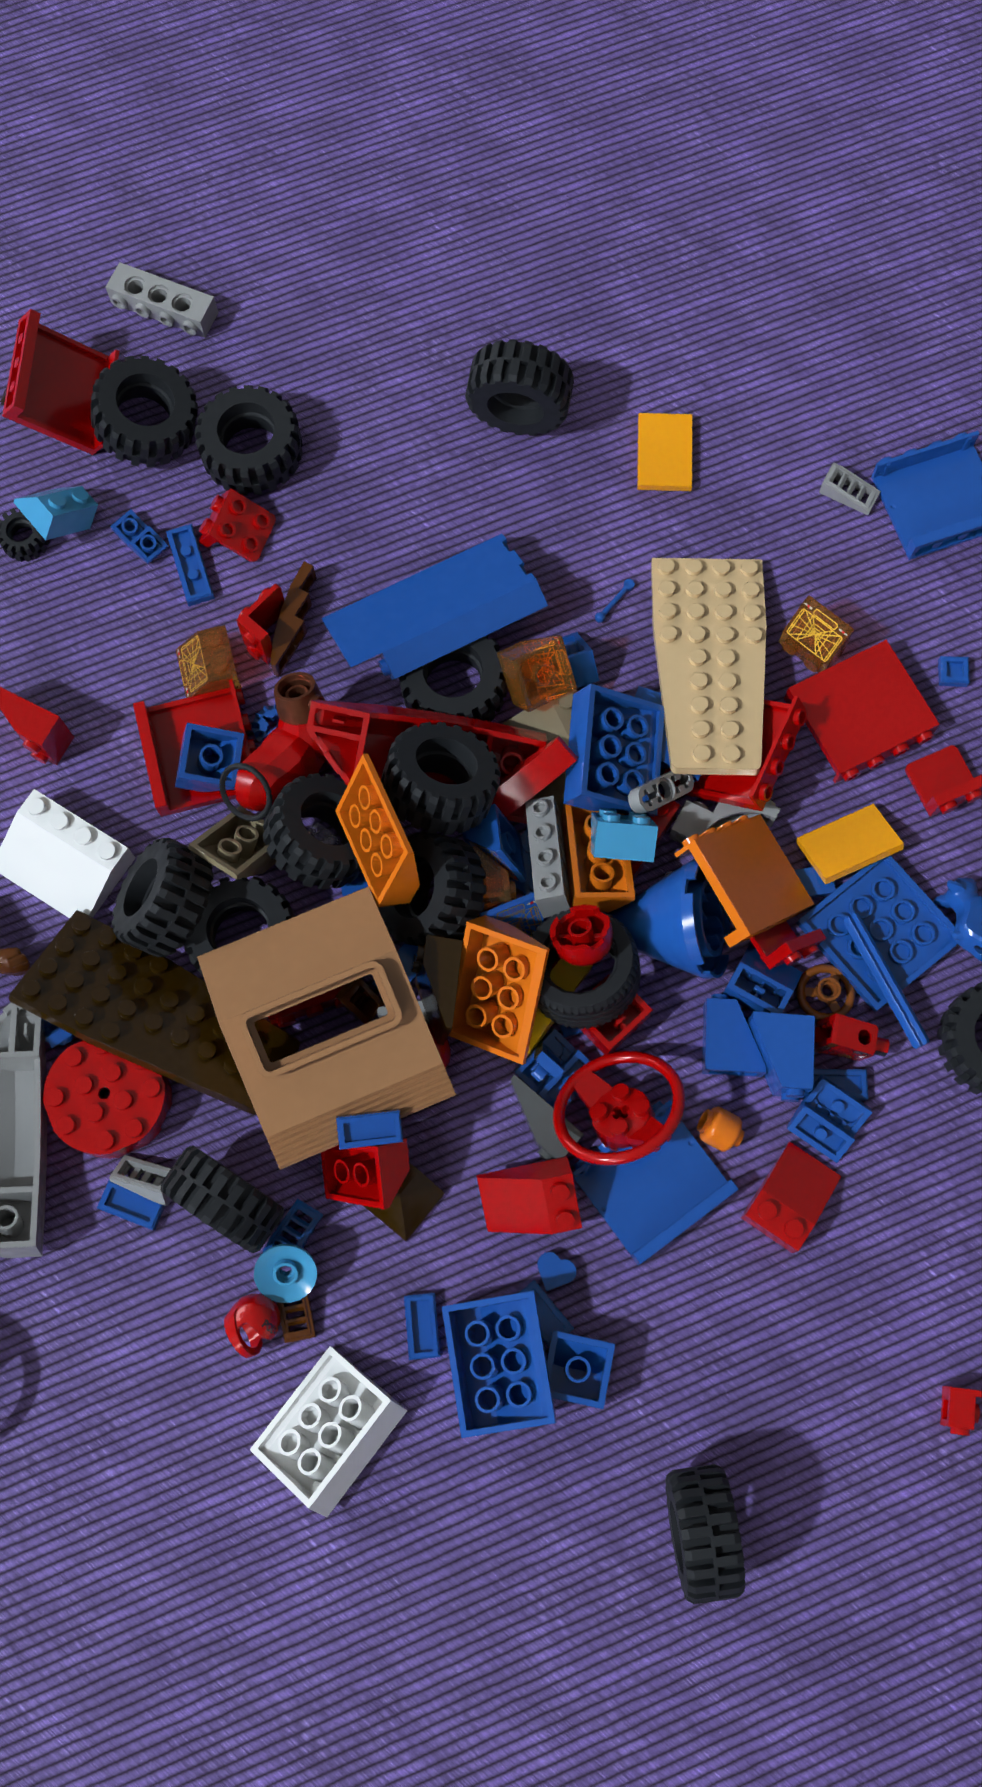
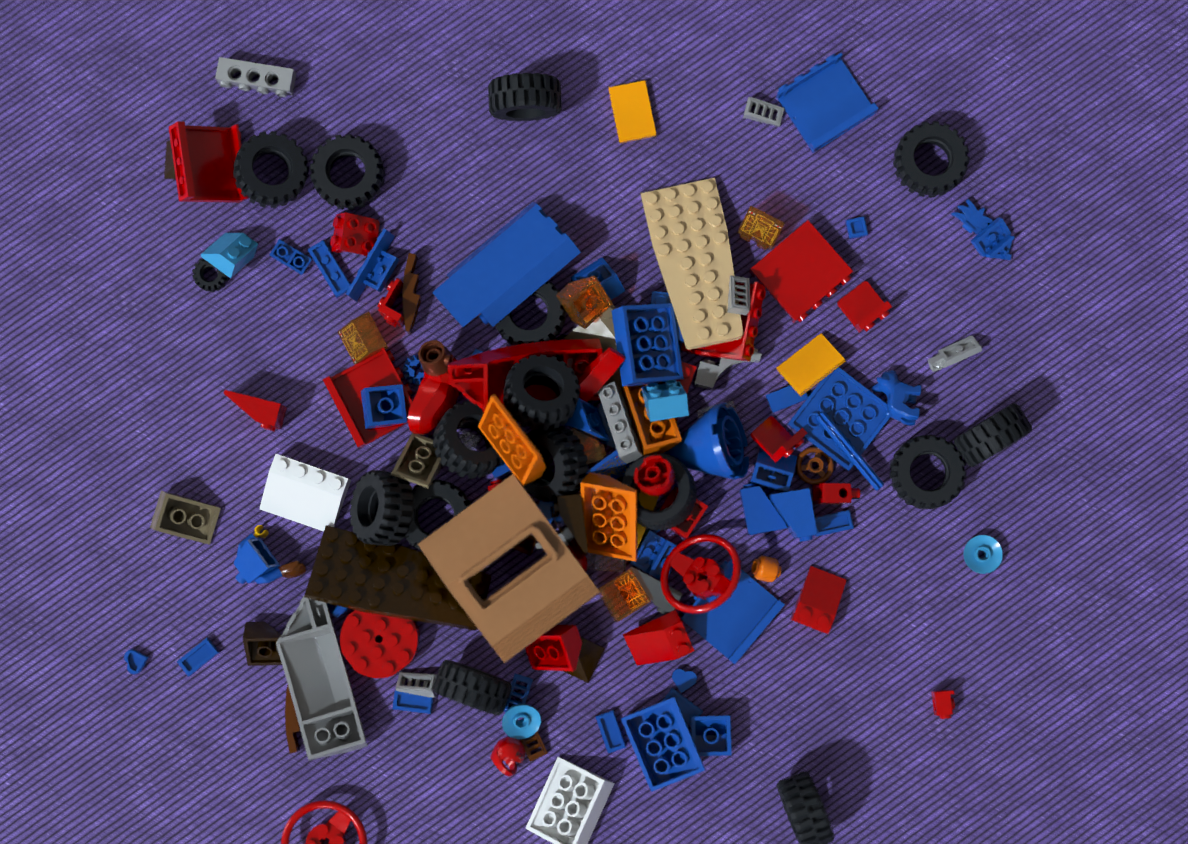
camera: 10 degrees left, 10 degrees up
(251, 573) = (376, 268): none -> blue bracket
(262, 779) = (424, 417): black tyre -> none
(369, 1129) = (553, 626): blue tile -> none
(477, 1061) = (605, 563): none -> clear tile
(491, 1116) = (623, 595): none -> clear orange slope
(546, 1063) = (649, 554): blue tile -> none
(627, 586) = (629, 215): blue hinge -> none
(651, 789) = (676, 365): light grey beam -> none
(748, 876) = (750, 406): orange panel -> none
(759, 727) = (738, 308): none -> light grey slope
(829, 1118) = (832, 546): blue slope -> none

